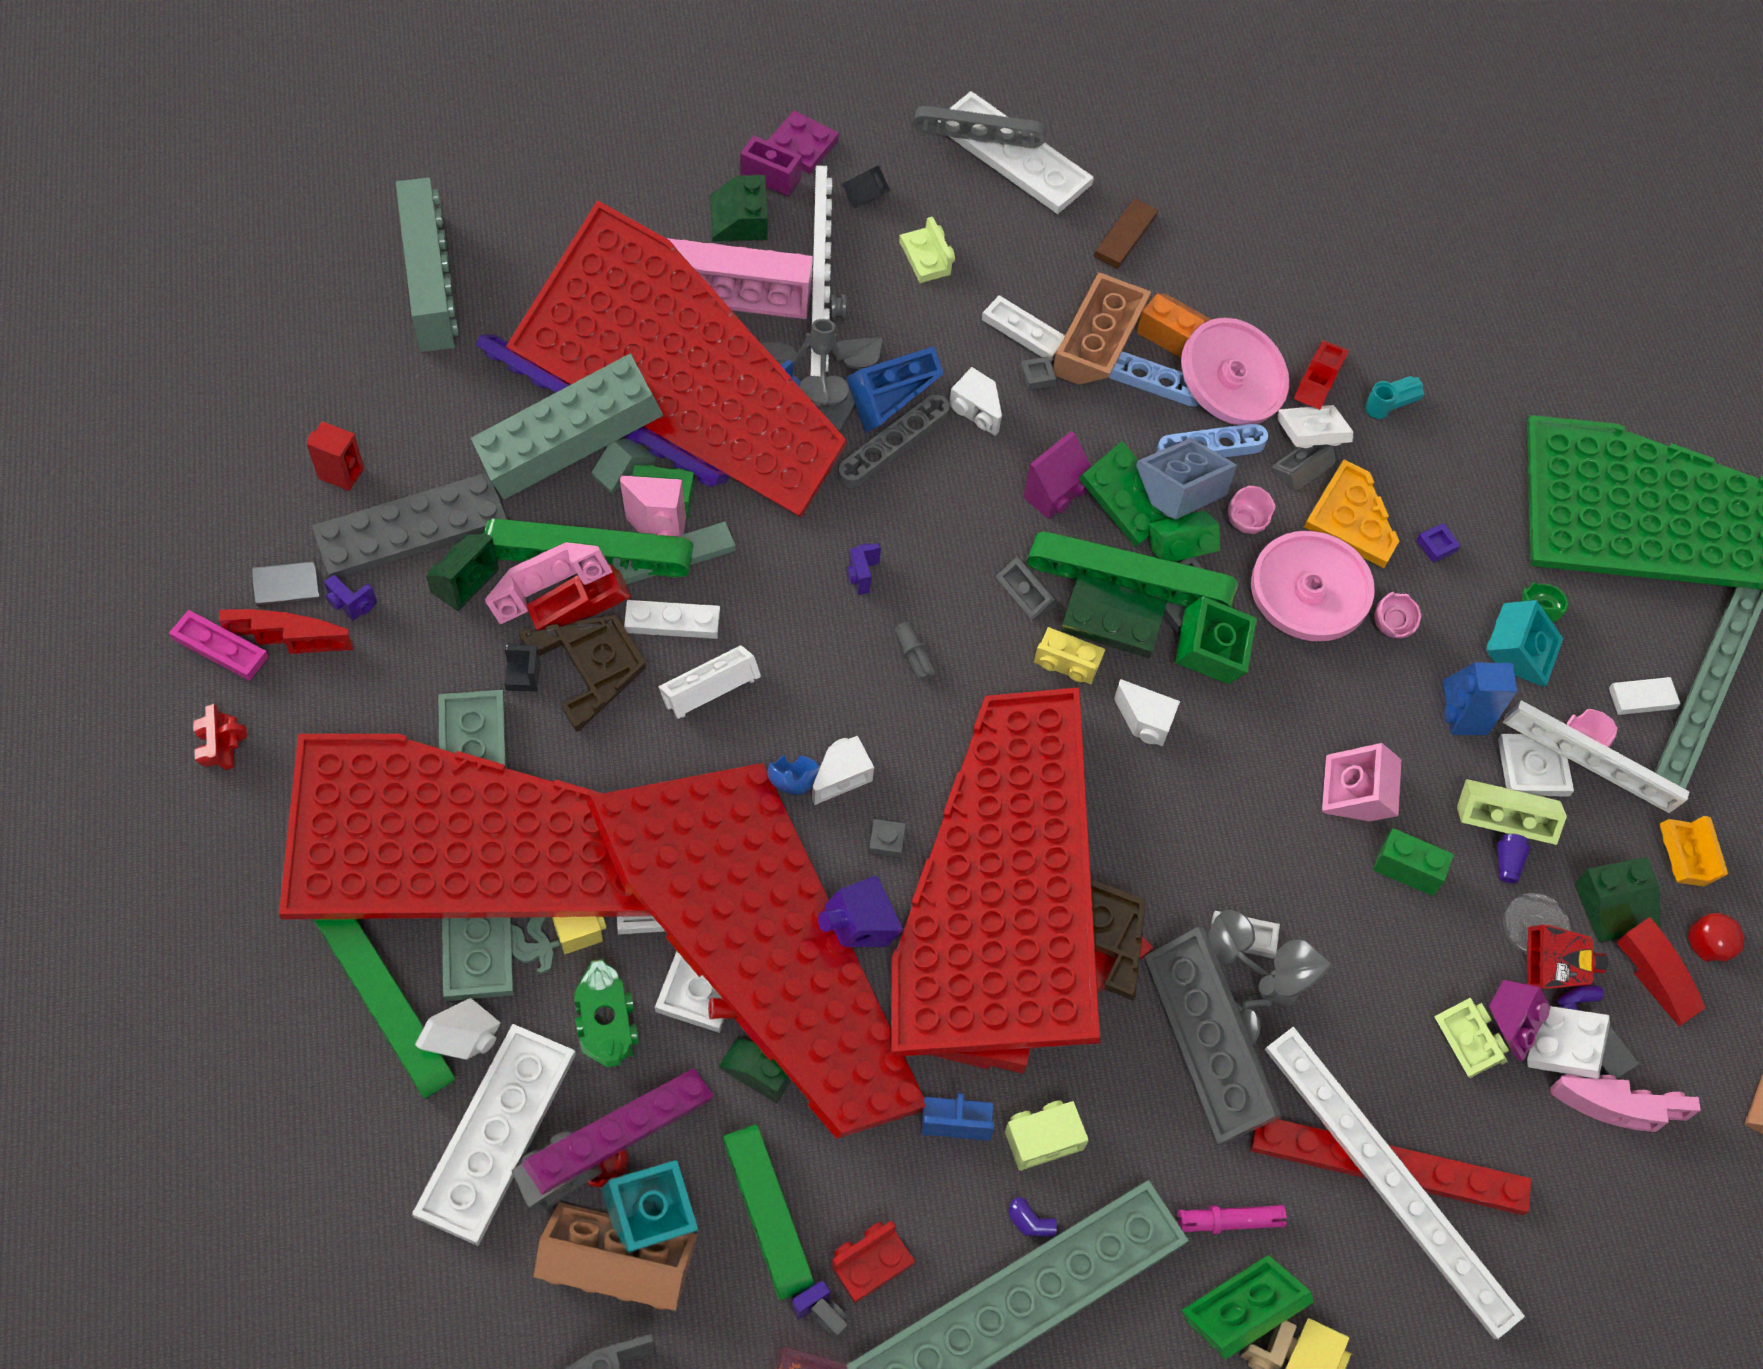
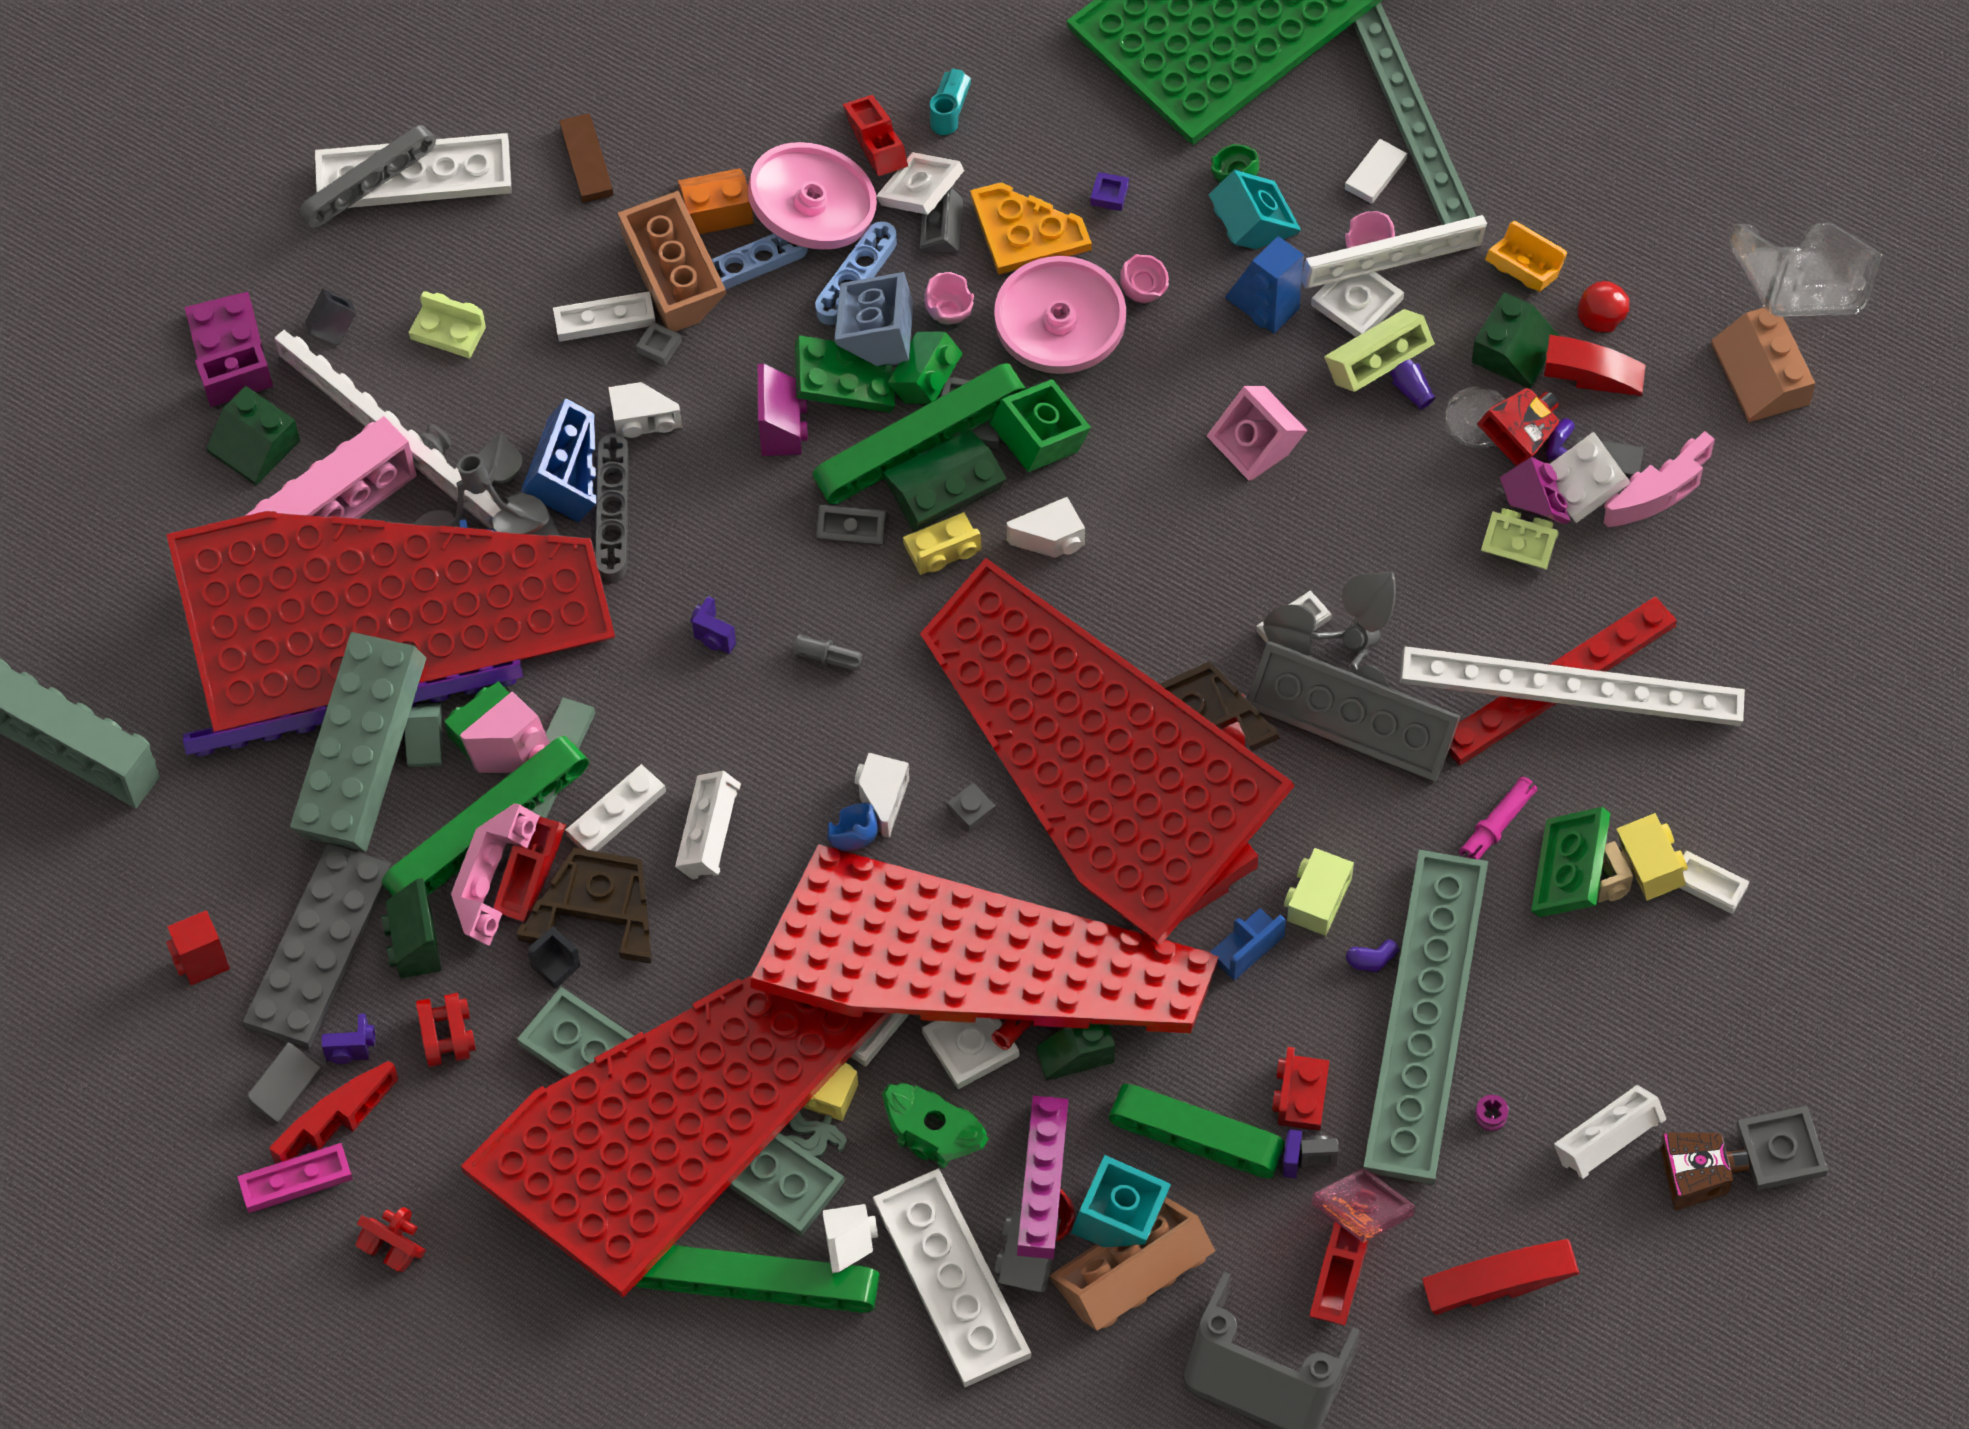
camera: 40 degrees left, 0 degrees up
(407, 645) = (455, 1012): none -> red brick
(861, 915) = (1026, 874): dark purple torso -> none
(1413, 862) = (1352, 454): green brick -> none

